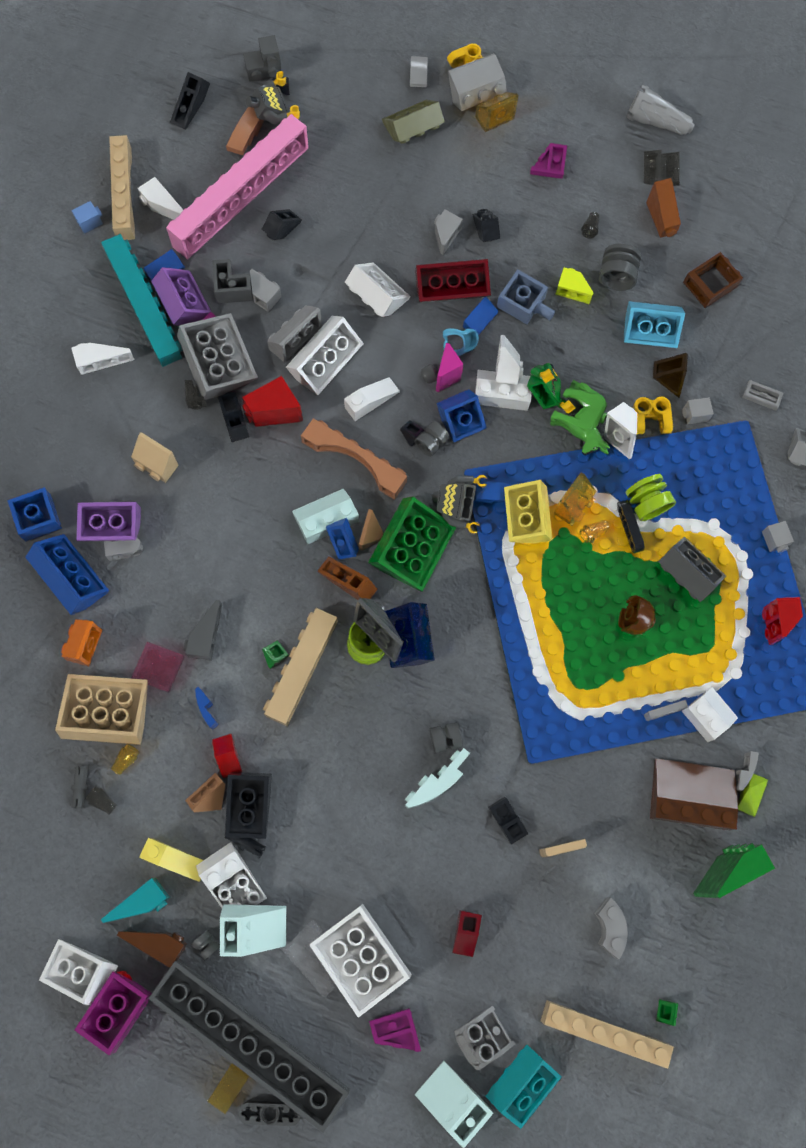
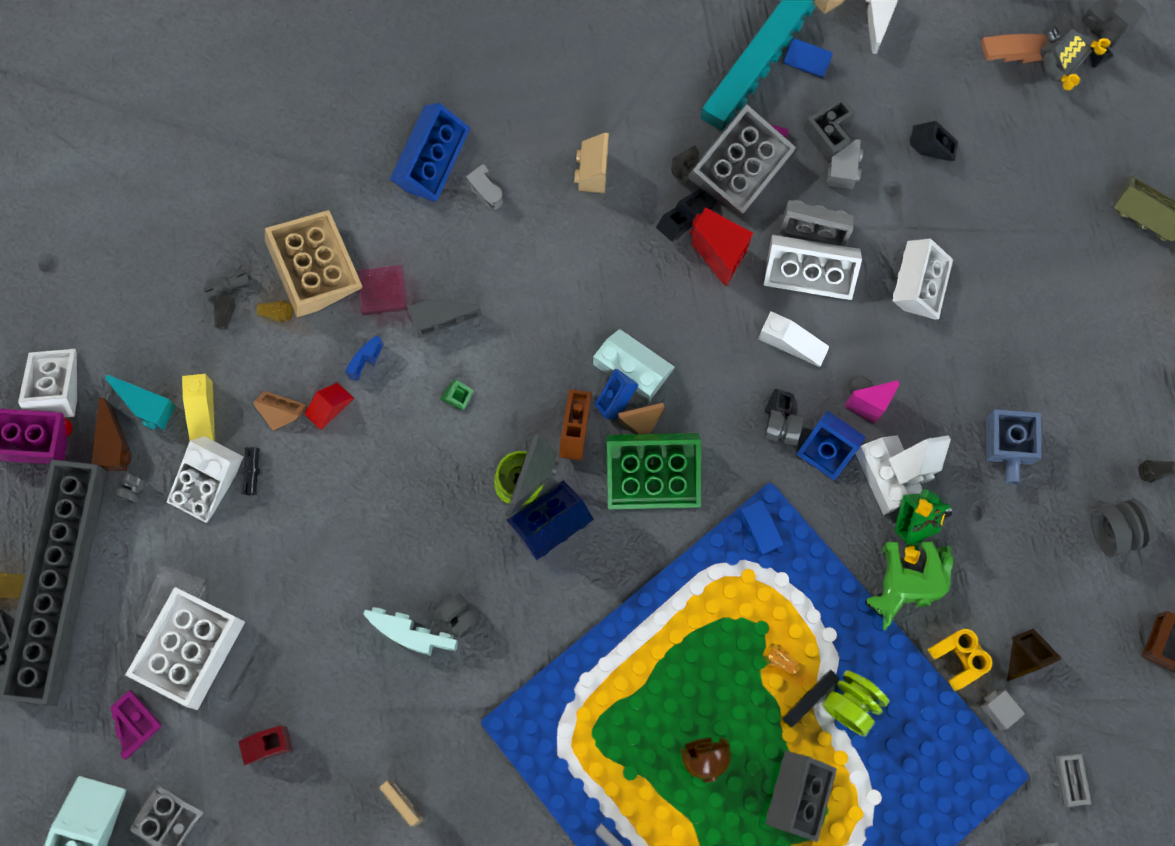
camera: 65 degrees right, 0 degrees up
(34, 514) = (471, 88): blue brick -> none
(81, 642) = (367, 205): orange slope -> none
(94, 357) = (669, 49): white slope -> none
(108, 521) = (502, 159): medium lavender slope -> none
(180, 296) = (786, 91): medium lavender slope -> none
(238, 186) = (948, 76): bright pink brick -> none
(247, 805) = (287, 451): black slope -> none
(251, 929) = (164, 522): light aqua slope -> none
(301, 666) = (456, 428): tan brick -> none
(322, 438) = (715, 315): nougat arch -> none
(446, 229) = (1043, 314): light grey slope -> none
(452, 280) = (982, 352): dark red slope -> none
(457, 499) = (726, 490): dark grey torso -> none
(469, 336) = (925, 407): medium azure piece -> none
(480, 316) = (961, 405): blue slope -> none
(486, 225) = (1076, 353): black slope -> none
(508, 820) = (406, 730): black slope -> none
(528, 512) = (757, 574): light yellow slope -> none
(574, 286) = (1066, 487): neon yellow slope -> none
(576, 500) = (803, 620): clear yellow slope -> none
(622, 429) = (921, 628): white slope -> none
(653, 324) = (1078, 604): medium azure slope -> none

